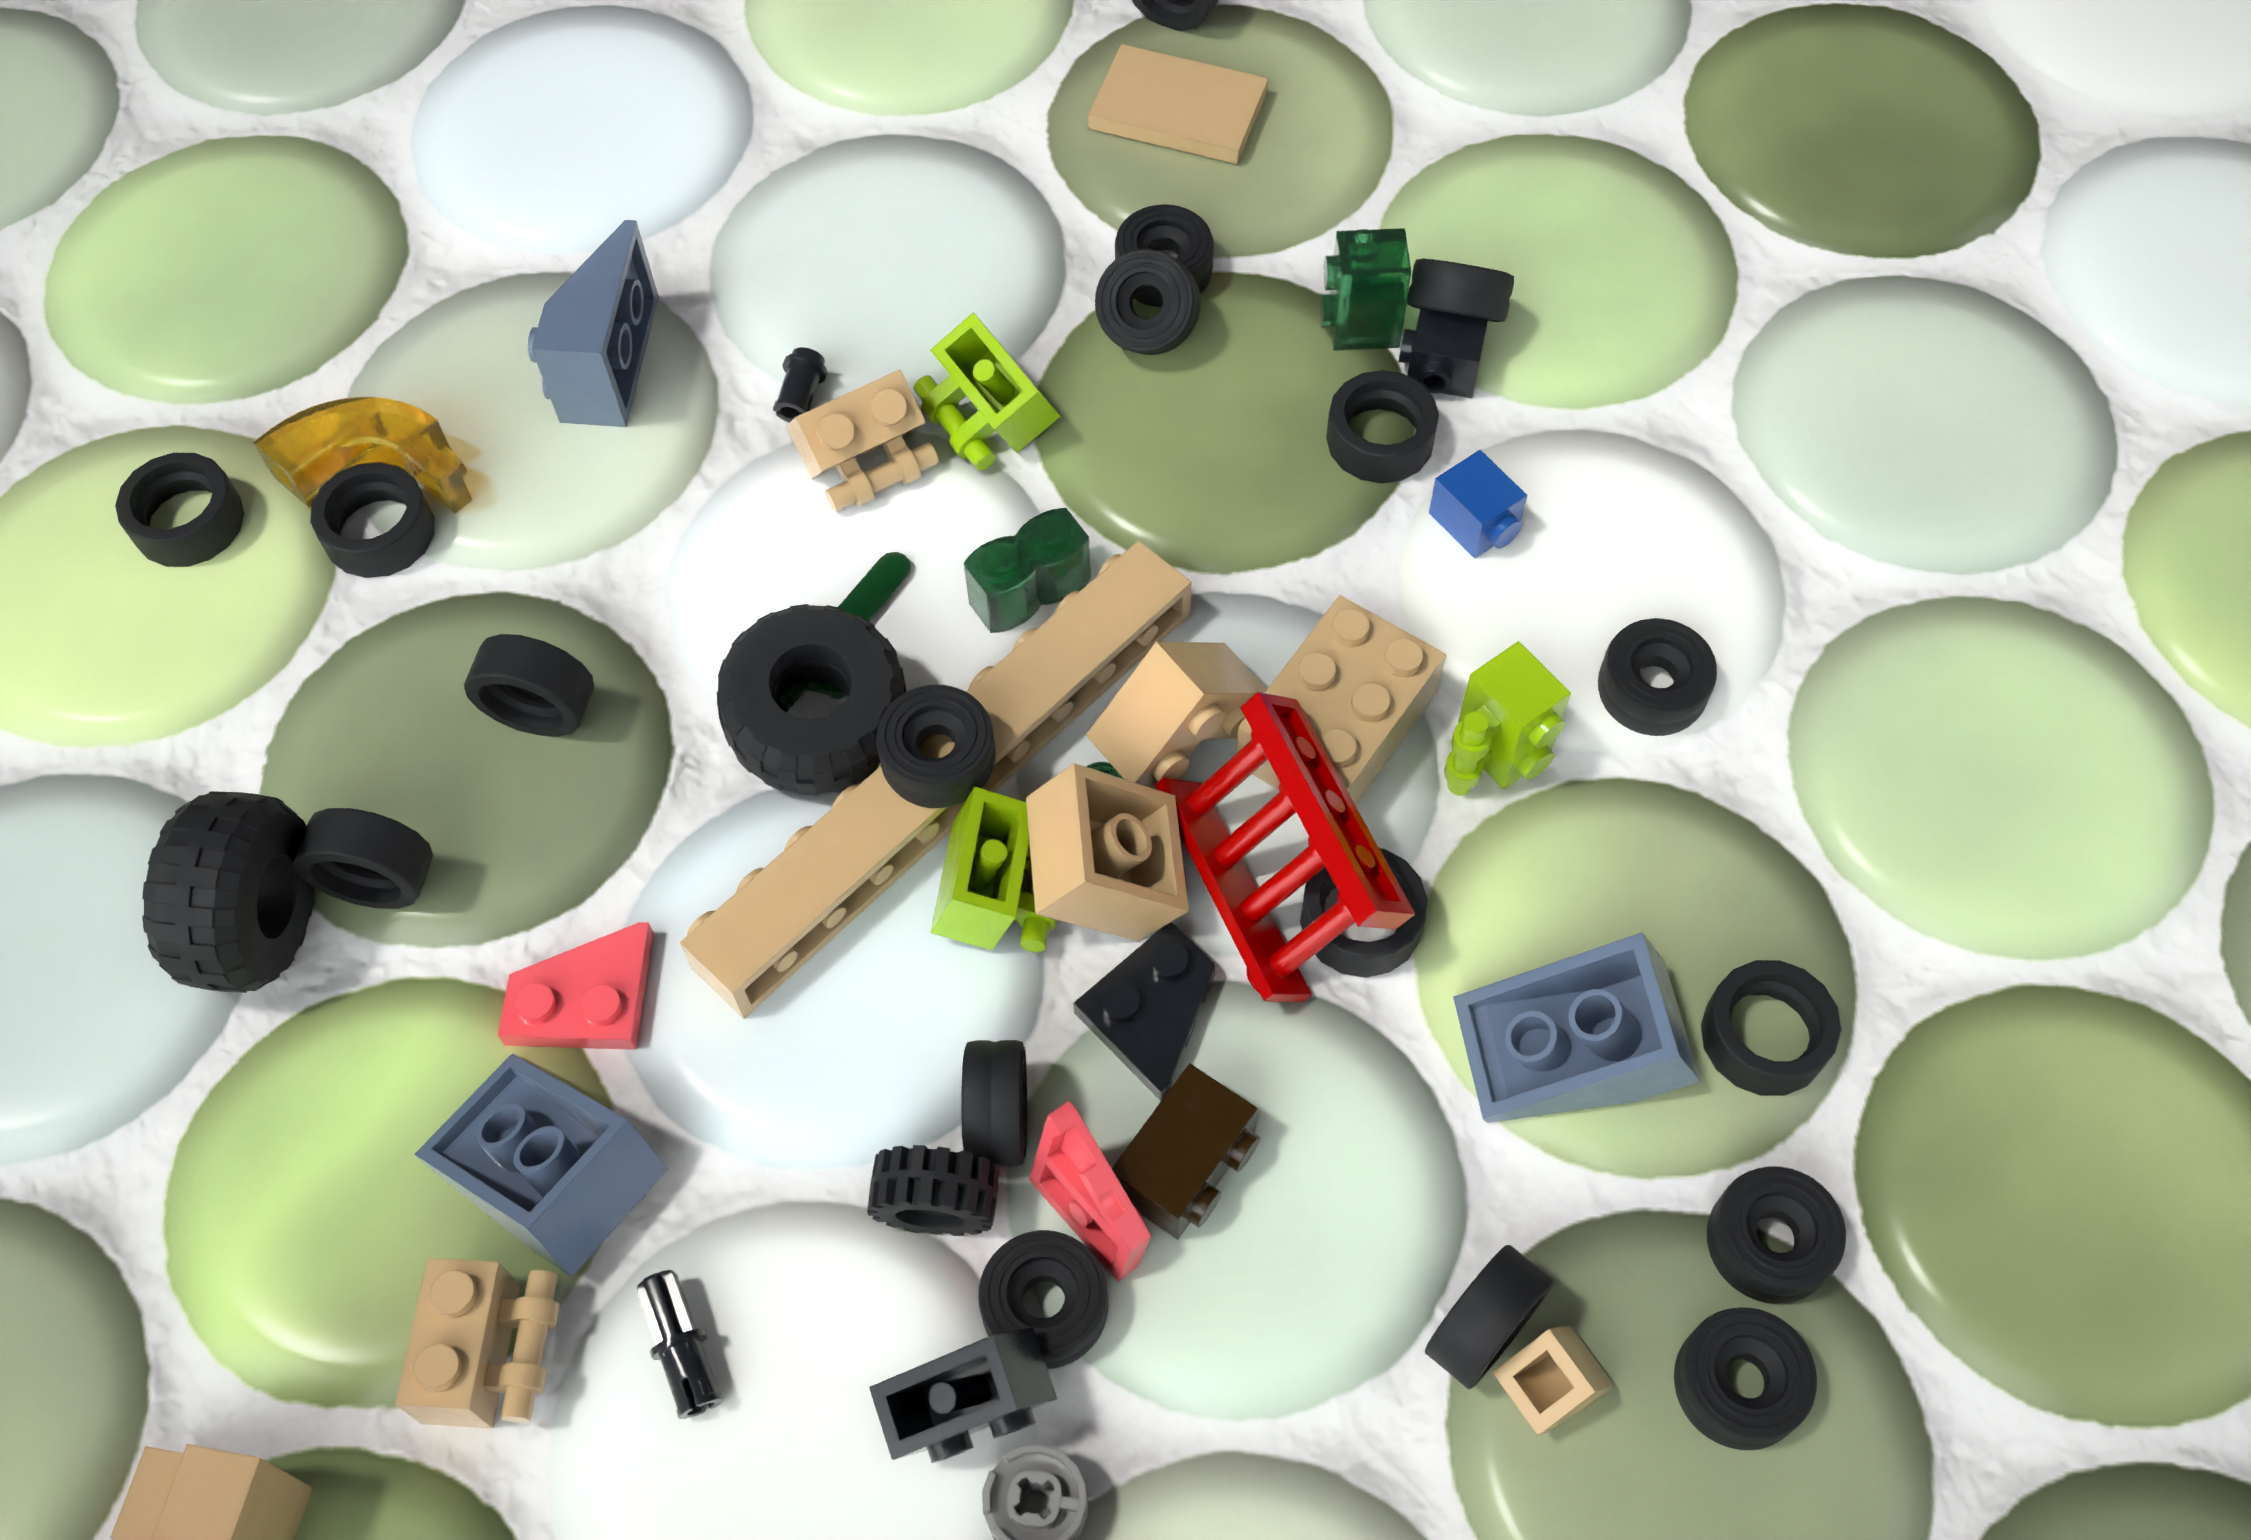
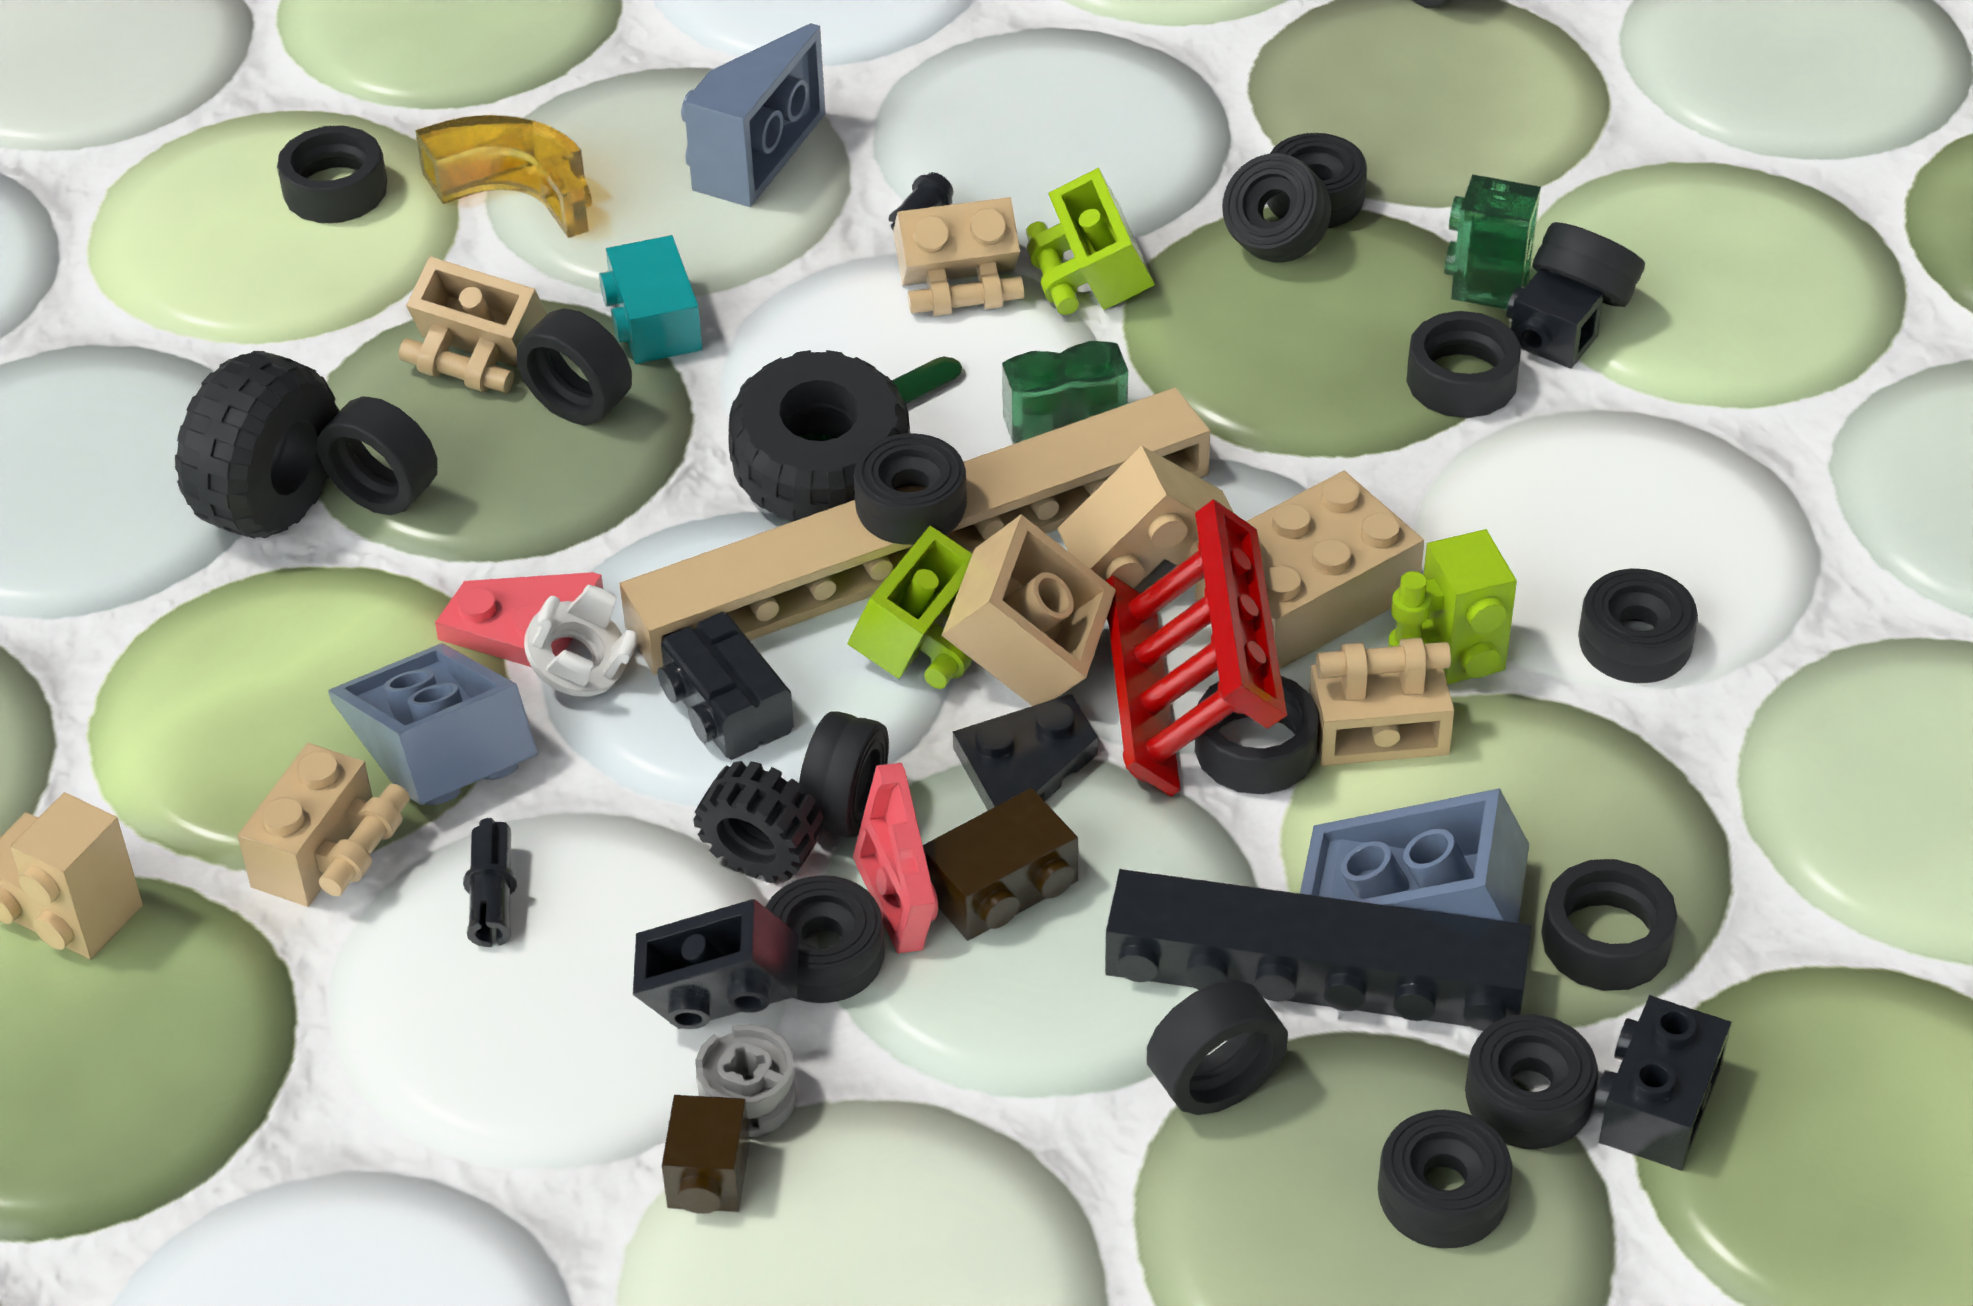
camera: 20 degrees right, 15 degrees down
(357, 488) = (490, 194): black tyre -> none
(400, 648) = (471, 314): none -> tan brick
(575, 573) = (651, 299): none -> teal brick
(664, 989) = (589, 622): none -> white piece
(828, 1023) = (725, 686): none -> black brick
(1178, 103) = (1392, 64): tan tile -> none
(1473, 843) = (1382, 702): none -> tan brick
(1478, 504) = (1526, 445): blue brick -> none
(1524, 1154) = (1317, 949): none -> black brick
(1553, 1378) = (1261, 1124): tan brick -> none
(1896, 1196) = (1662, 1082): none -> black brick

